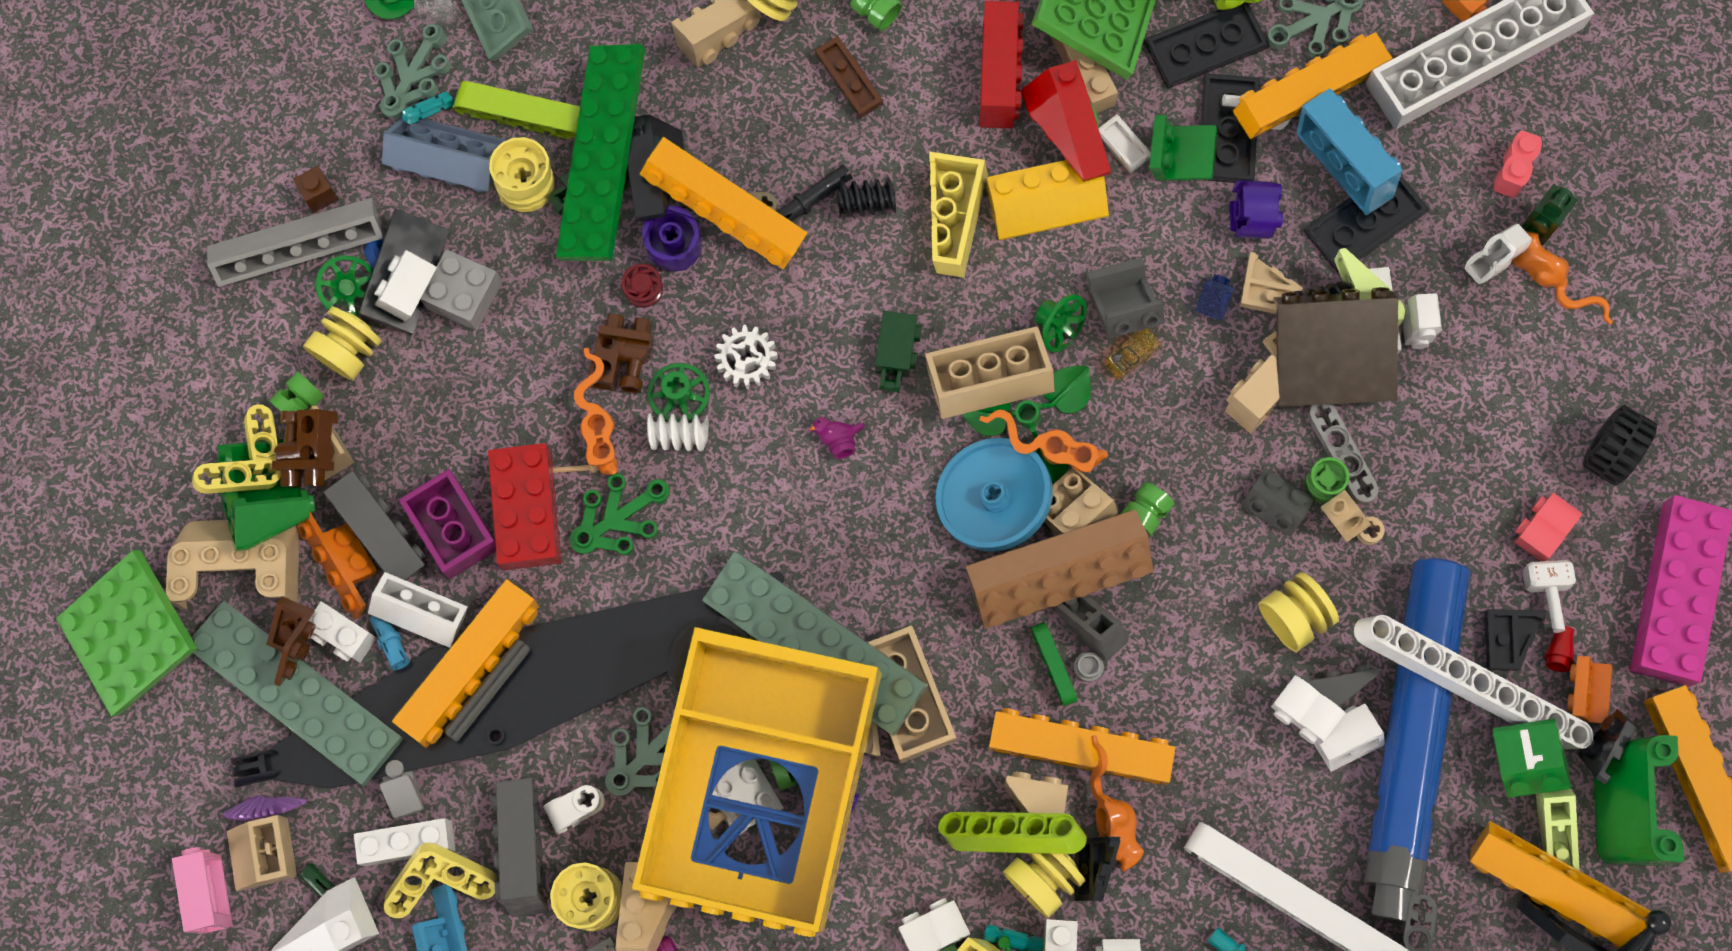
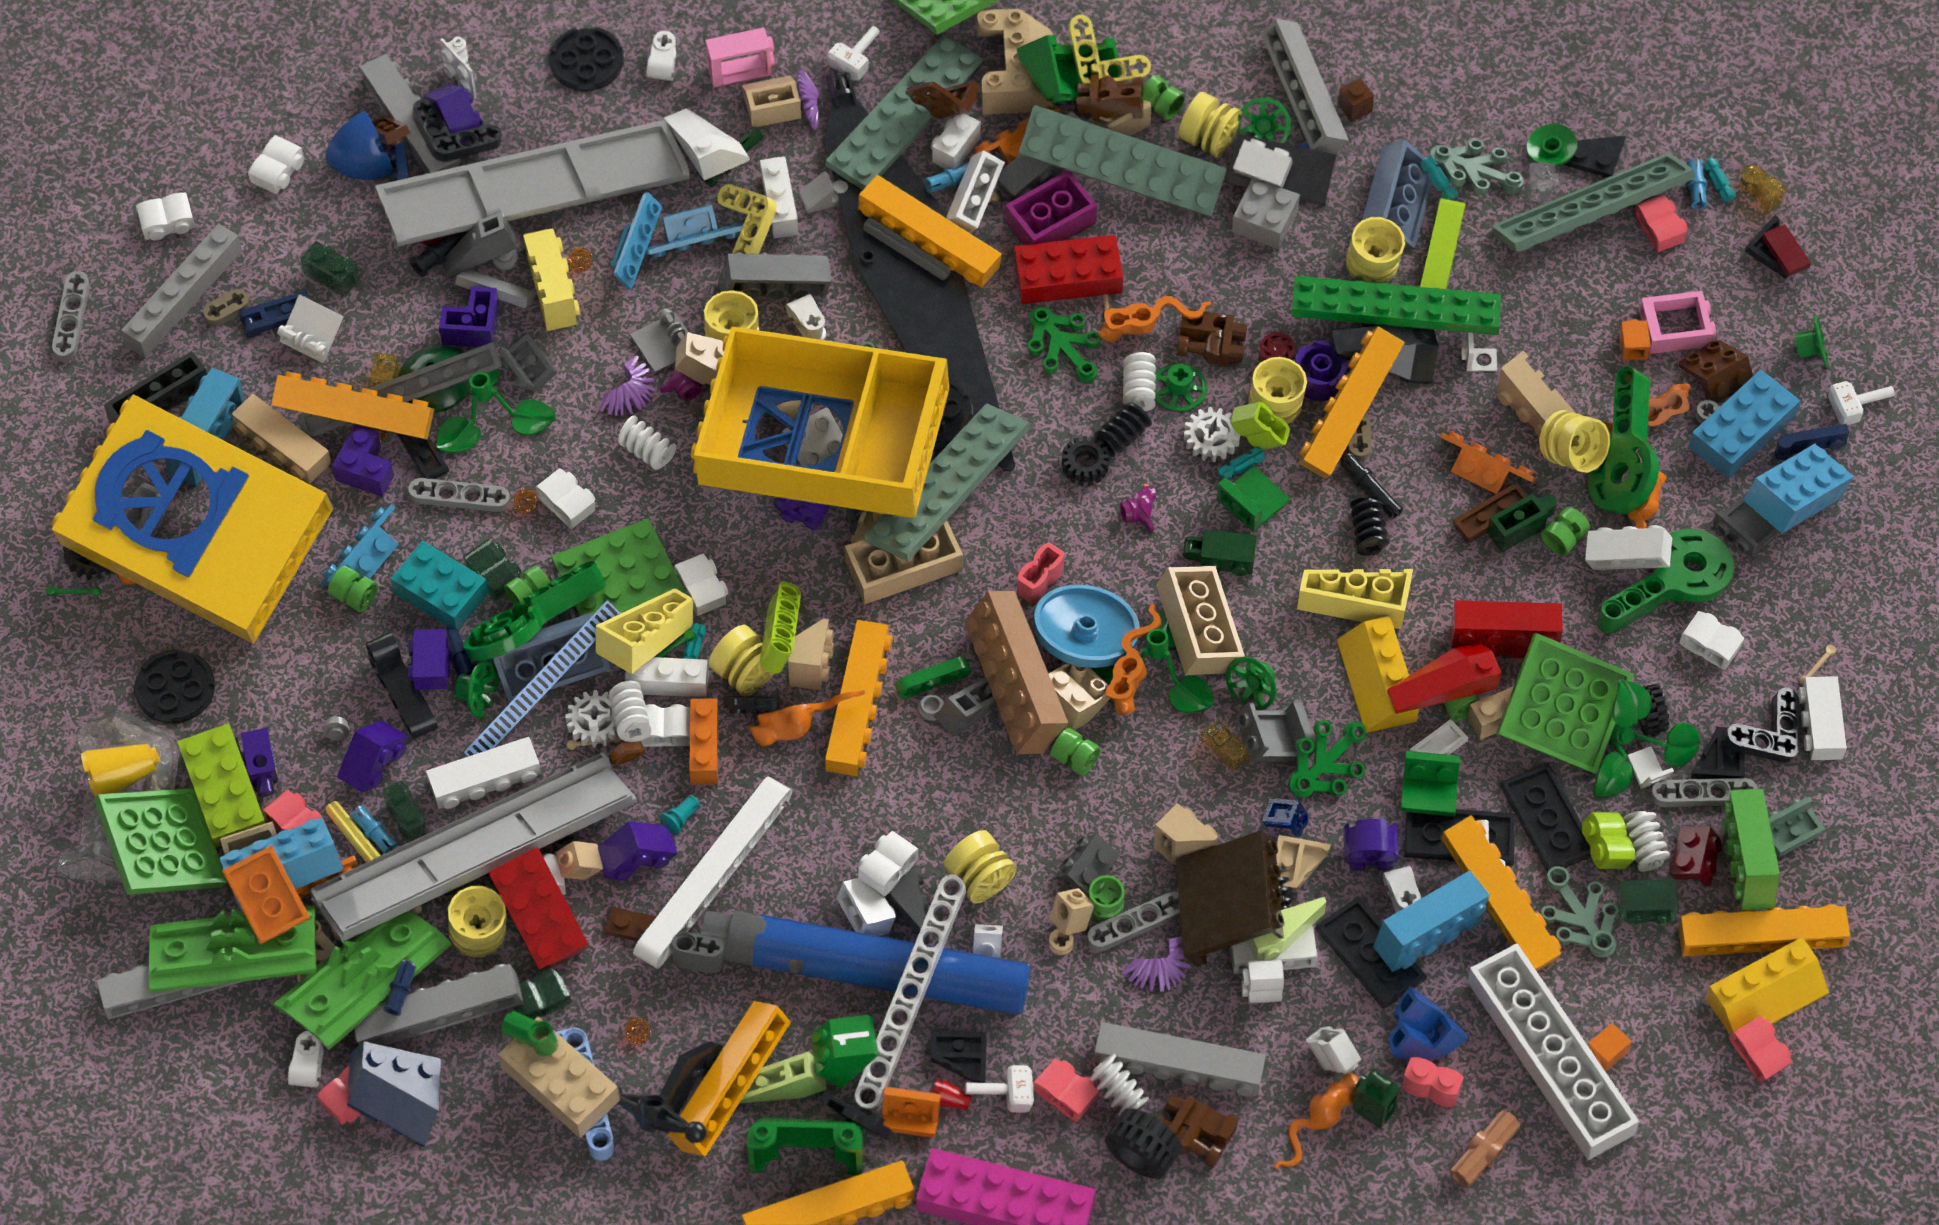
camera: 85 degrees right, 15 degrees down
(210, 760) = (851, 60): none -> white piece
(389, 442) = (1122, 161): none -> sand green plate
(654, 86) = (1470, 354): none -> white bracket
(702, 268) = (1280, 386): none -> light yellow wheel
(737, 452) = (1122, 427): none -> black piece
(746, 302) = (1260, 425): none -> lime brick
(771, 477) = (1085, 474): none -> black tyre
(781, 329) = (1241, 463): none -> teal axle
(792, 83) = (1482, 468): none -> orange bracket
(827, 317) = (1252, 498): none -> green bracket
(865, 45) = (1520, 520): none -> dark green brick
(919, 538) = (1040, 573): none -> coral brick
(1142, 923) = (703, 741): none -> orange arch
(1177, 273) = (1324, 760): none -> green plant
(1298, 183) = (1401, 887): none -> white piece
(1379, 604) = (988, 942): none -> white bracket
(1397, 427) = (1162, 969): none -> medium lavender hair
(1457, 171) = (1423, 1029): none -> blue brick
(1505, 411) = (1181, 1059): none -> light grey brick
(1549, 471) = (1117, 1085): none -> white piece
(1578, 404) = (1198, 1120): none -> reddish brown hips
(1583, 119) = (1484, 1148): none -> nougat piece

